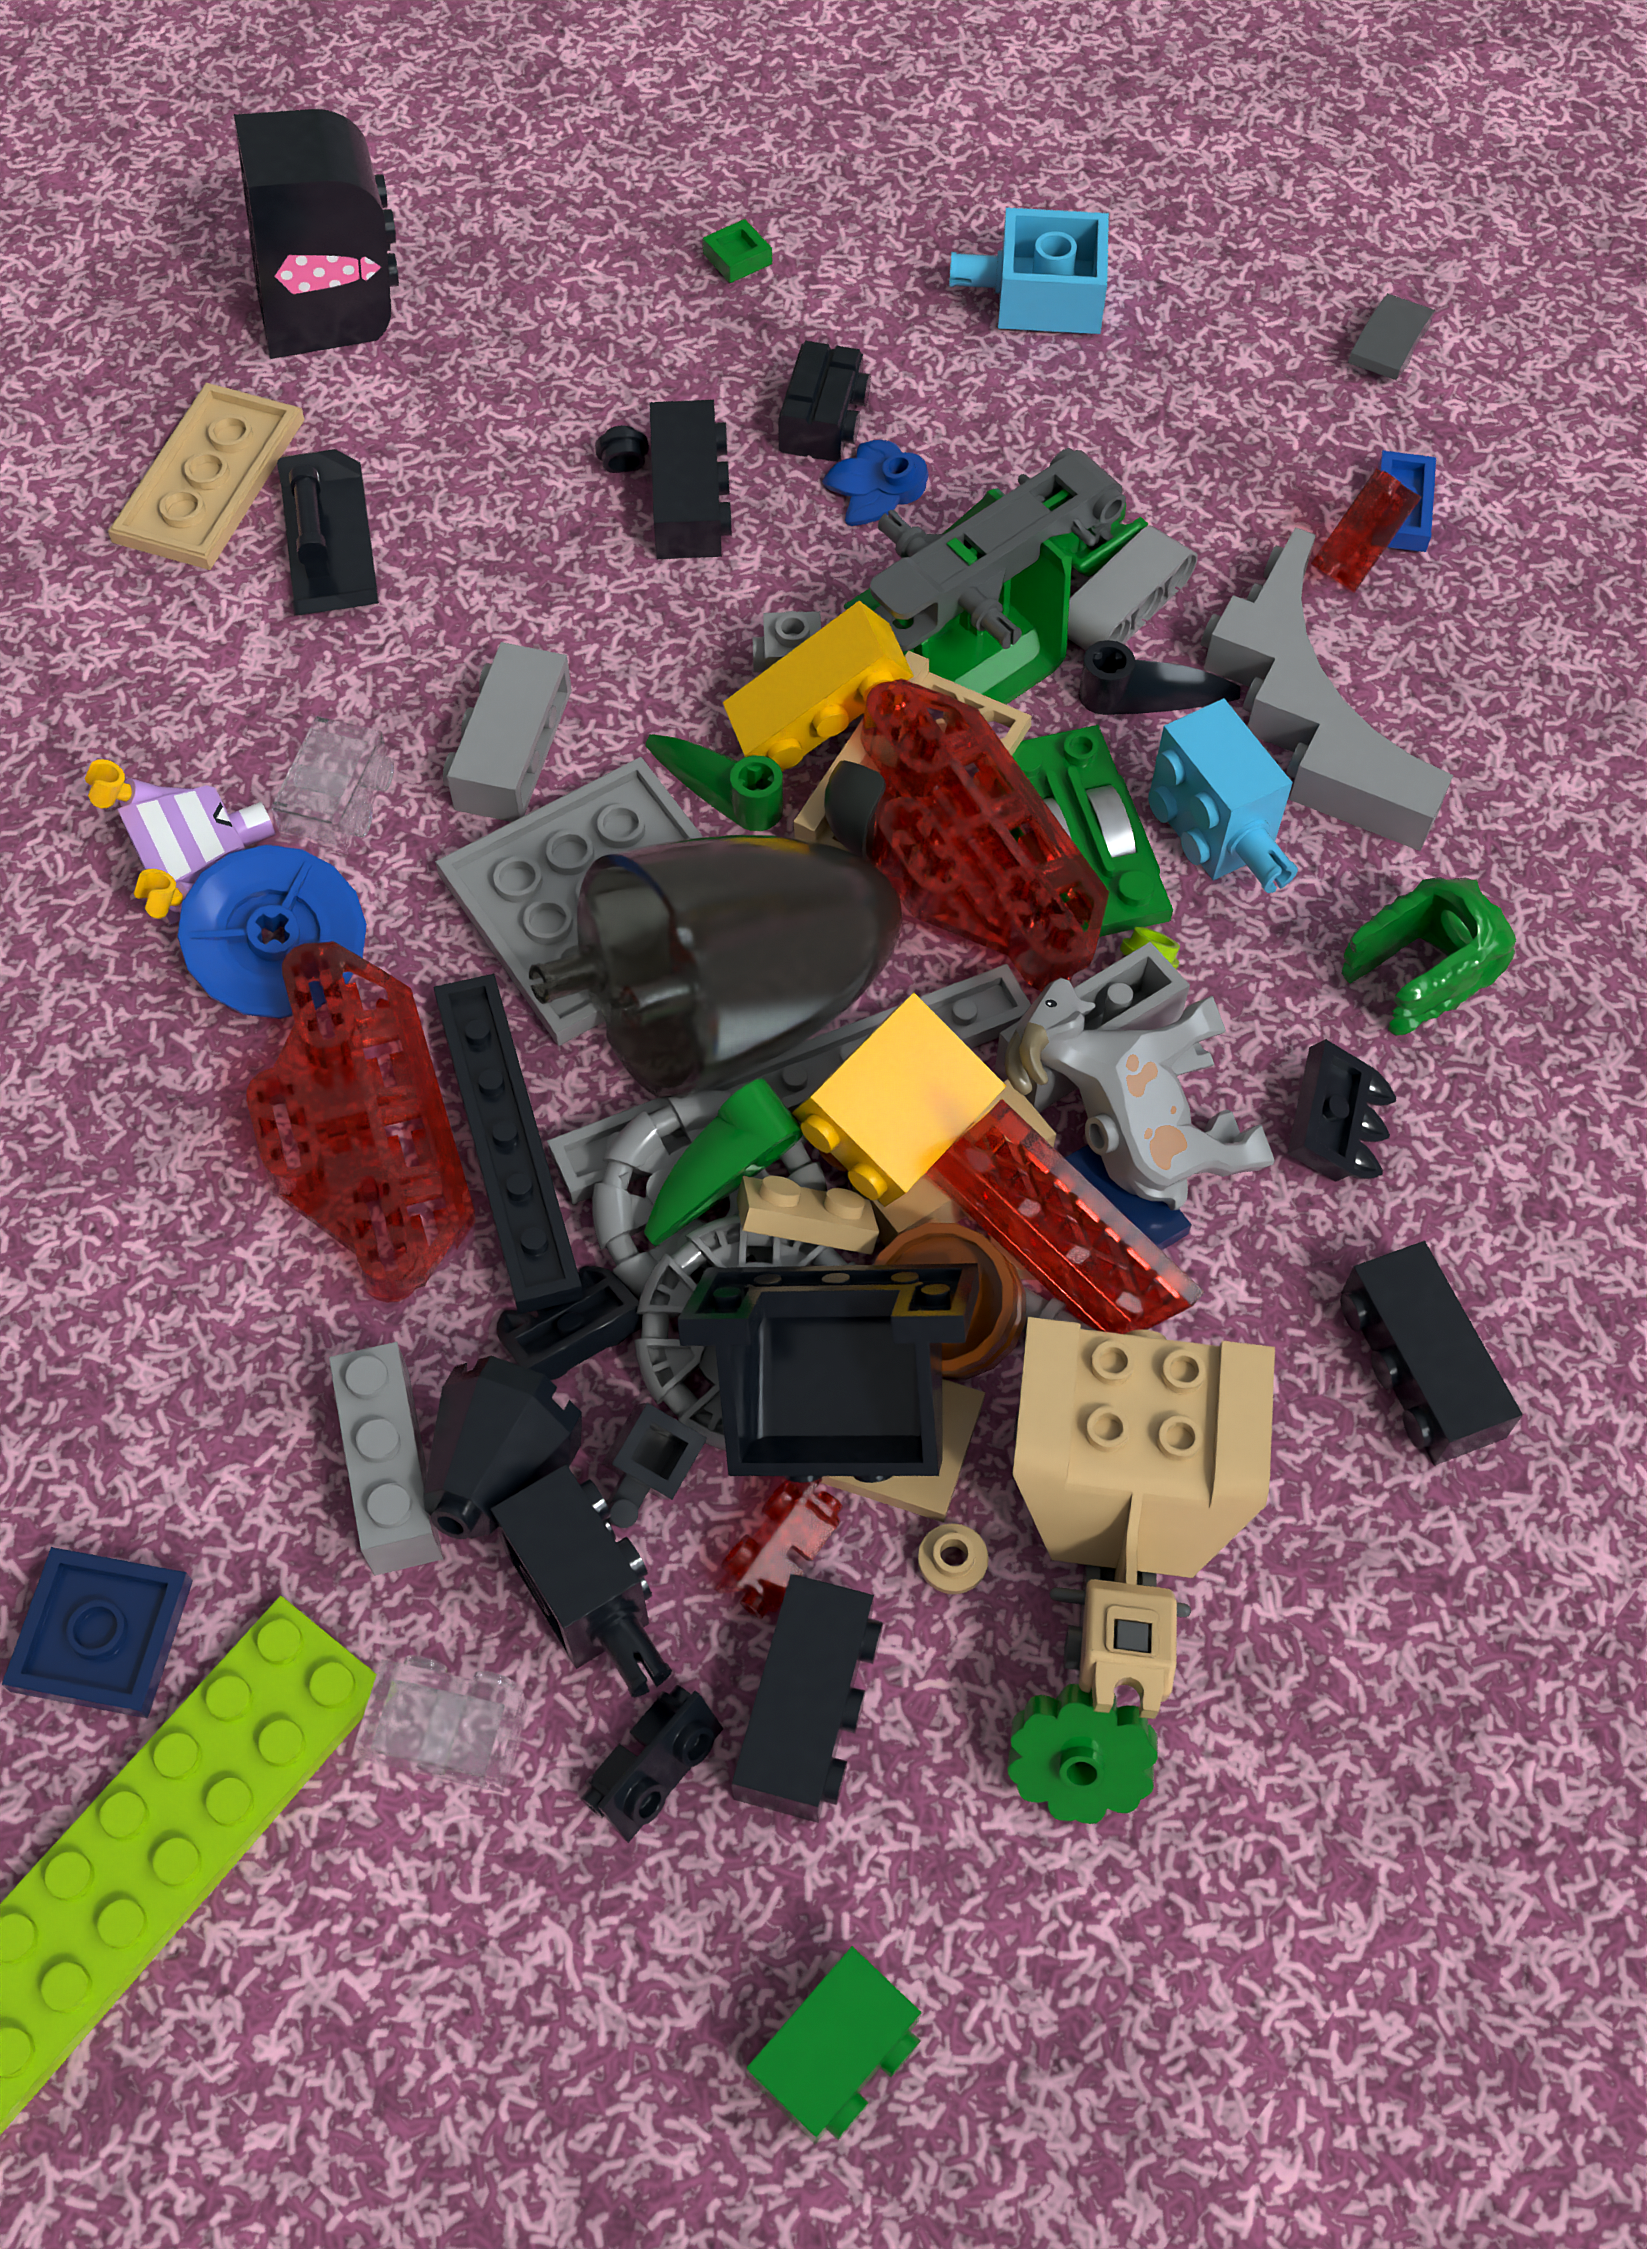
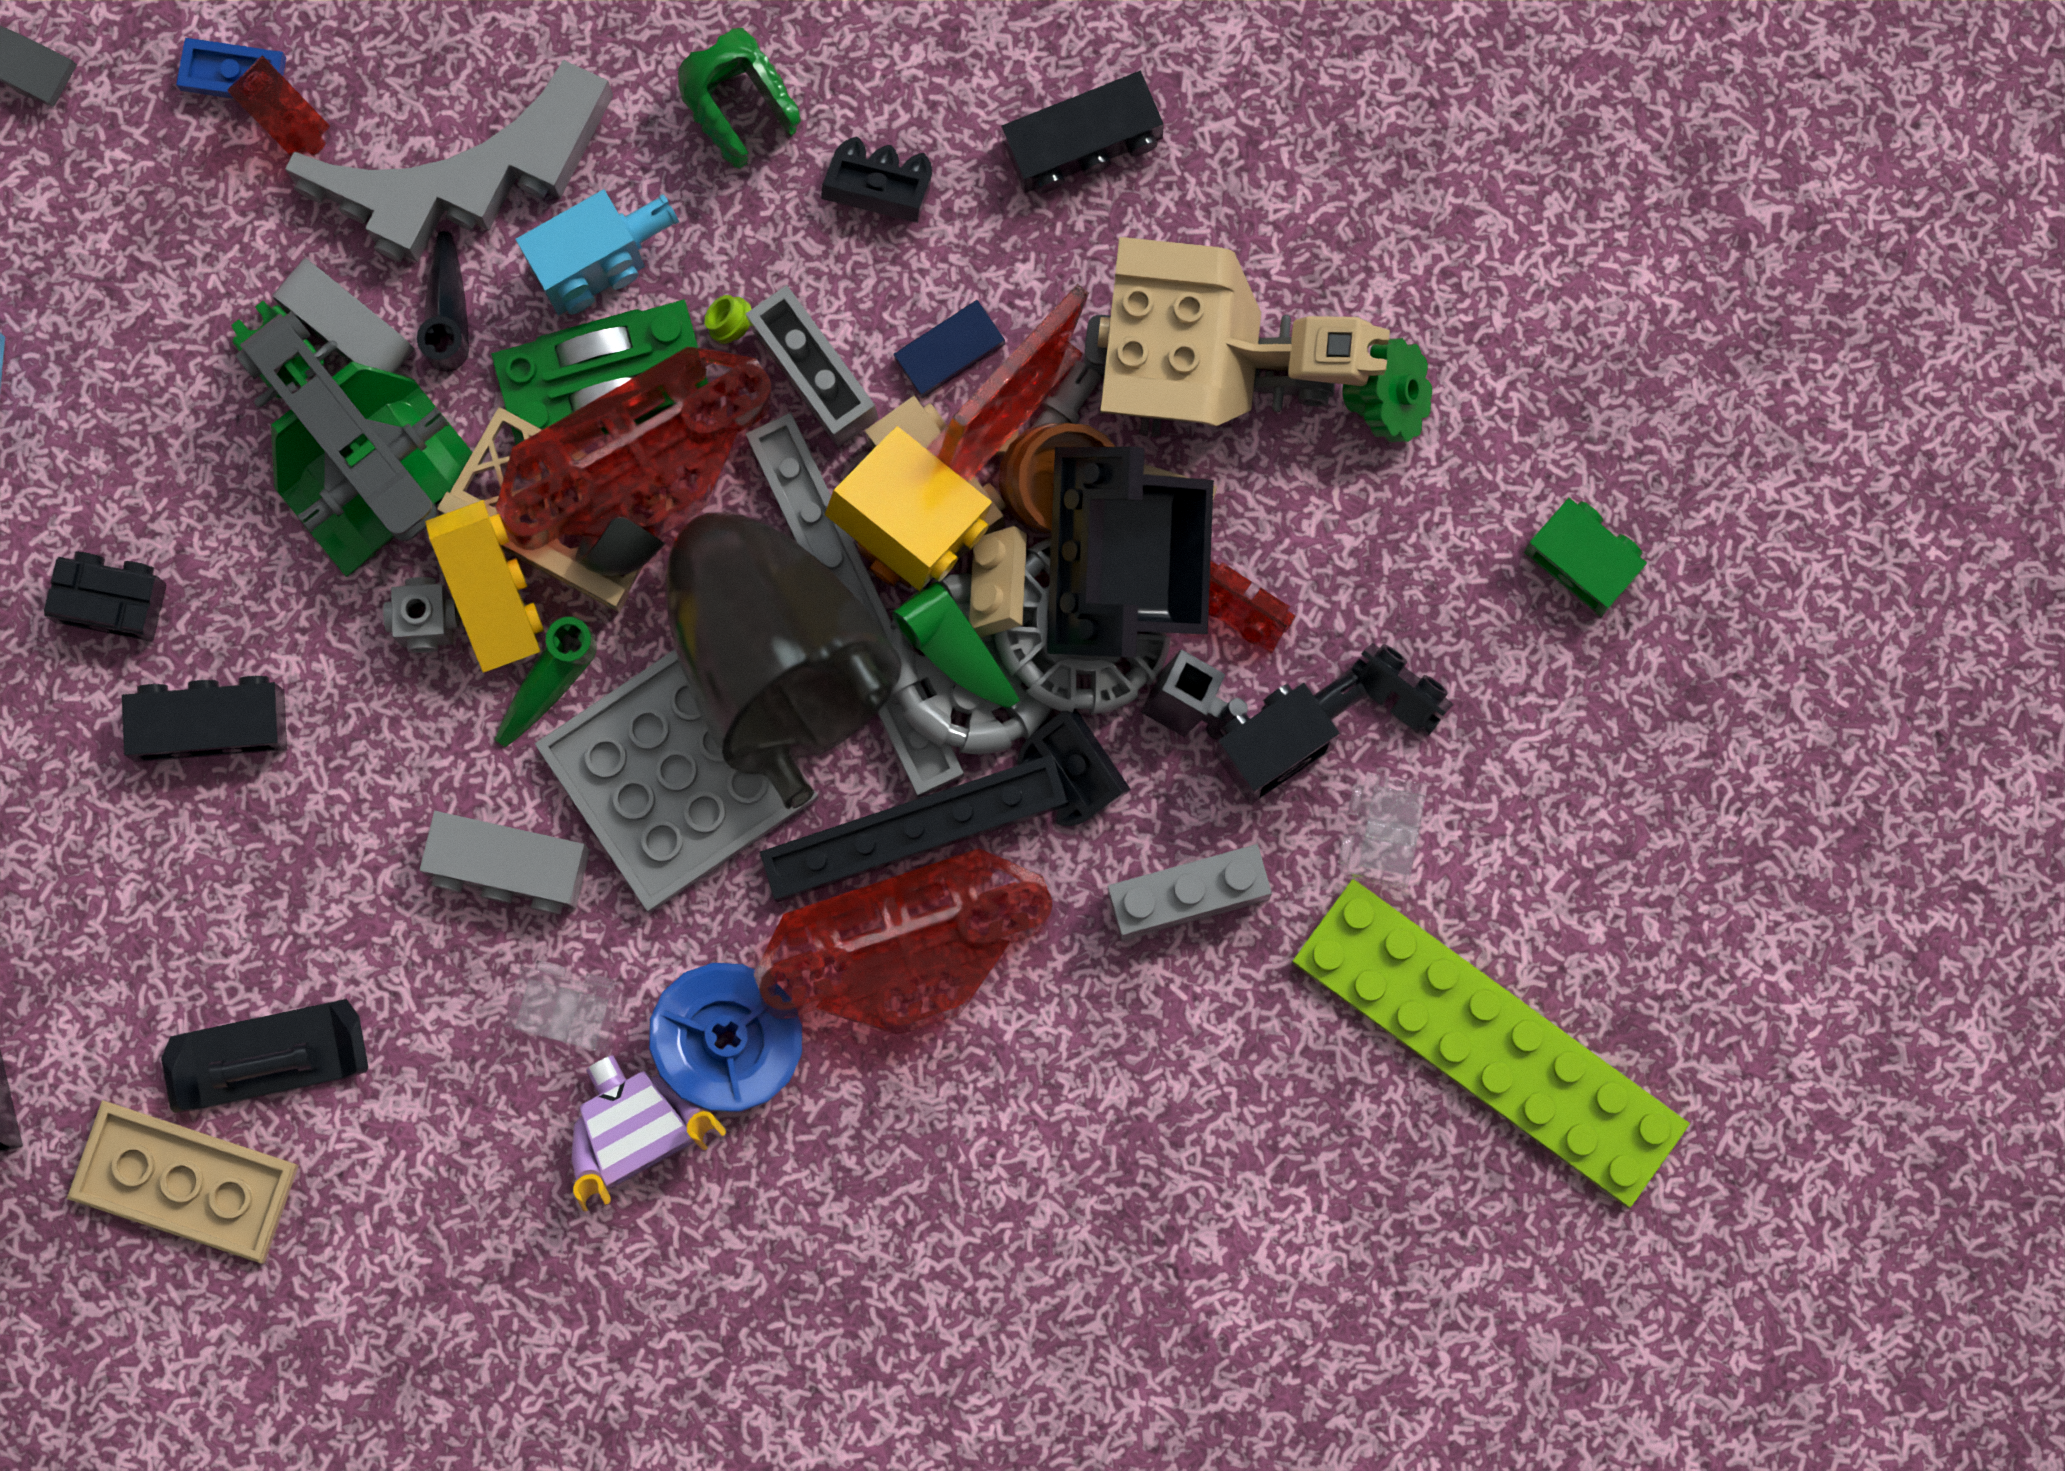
camera: 85 degrees left, 20 degrees up
(98, 1632) = (1323, 1088): dark blue plate -> none
(493, 1440) = (1192, 806): black cone -> none
(622, 449) = (163, 784): black plate -> none
(807, 1699) = (1357, 580): black brick -> none
(877, 480) = (198, 556): blue plate -> none
(953, 1578) = (1248, 496): tan plate -> none
(1133, 1093) = (887, 333): light grey animal -> none

